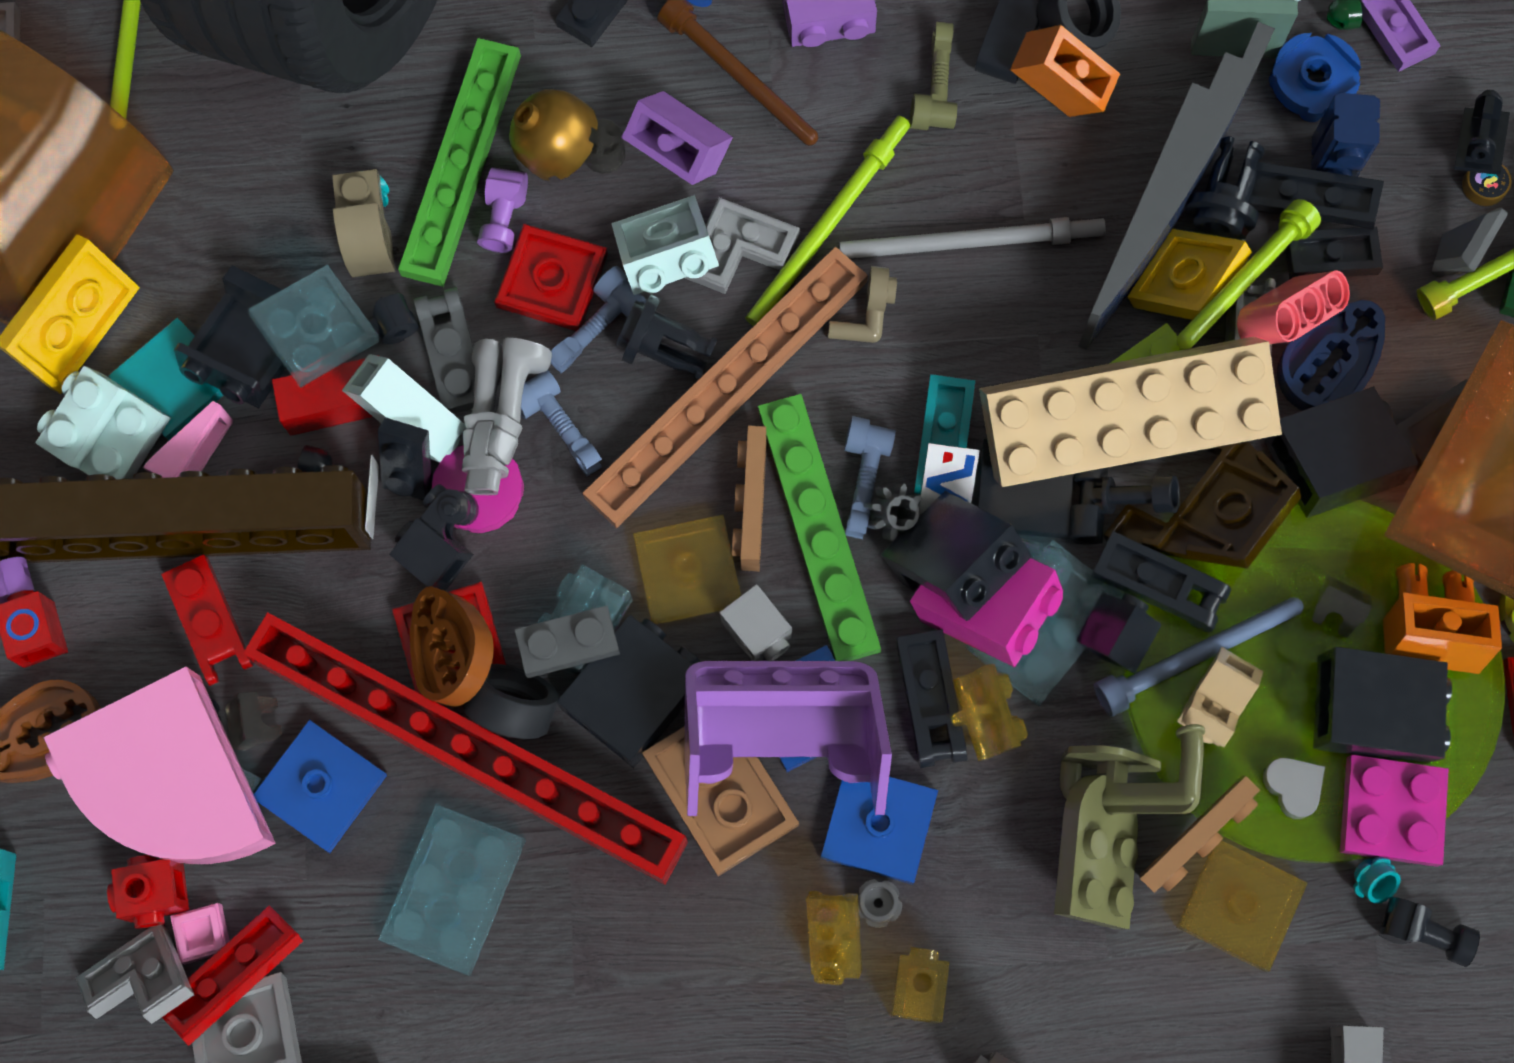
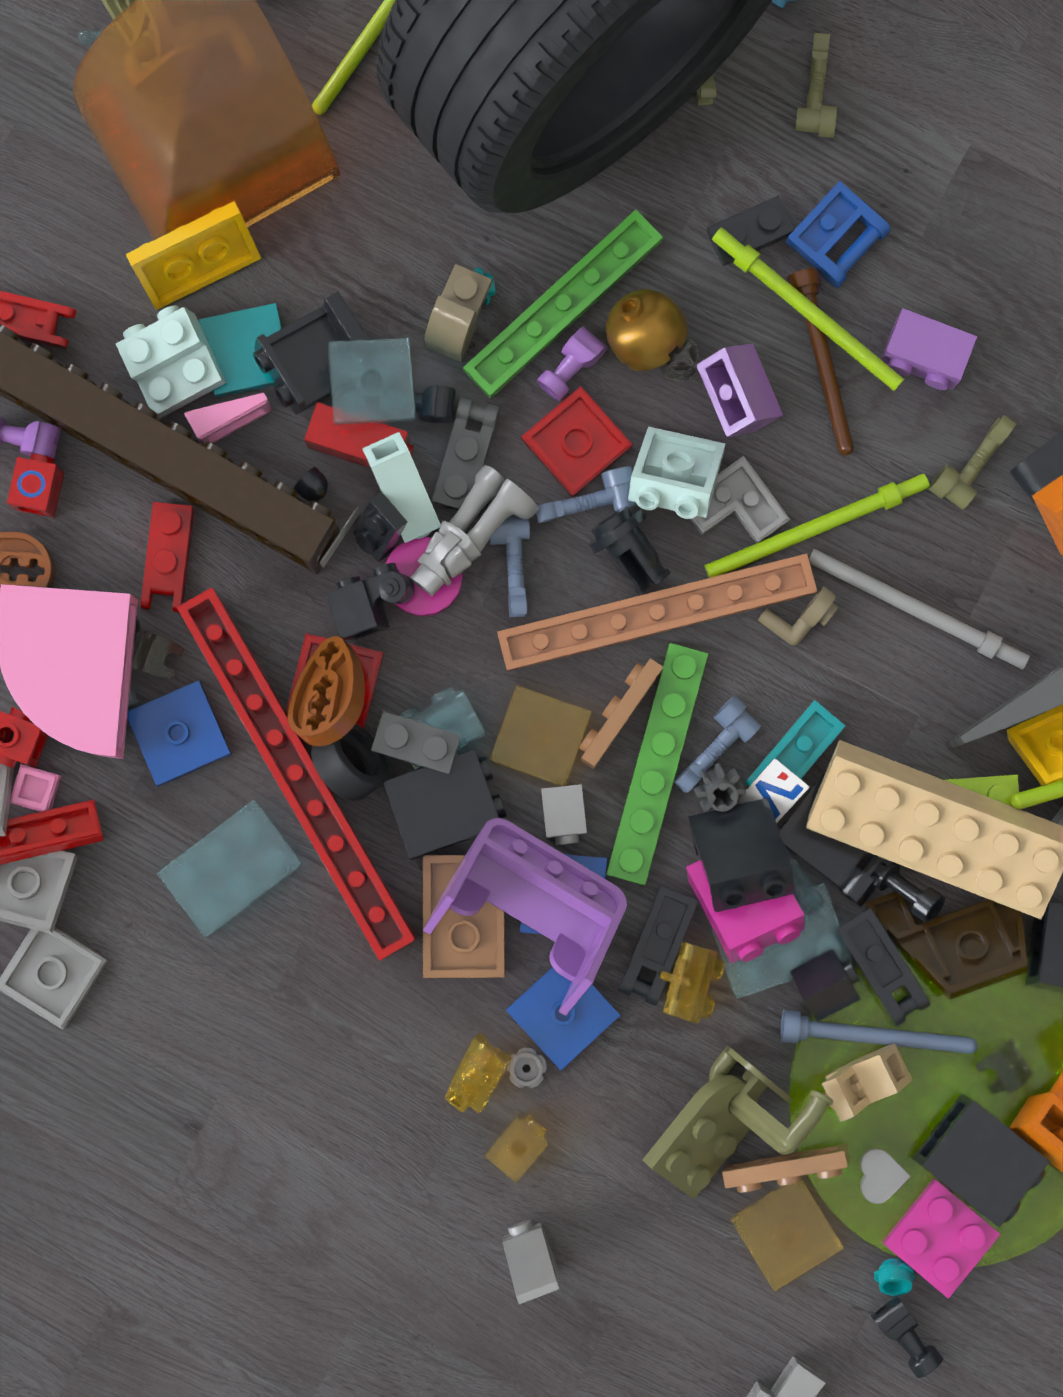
camera: 30 degrees right, 10 degrees up
(611, 20) = (748, 260): none -> lime bar

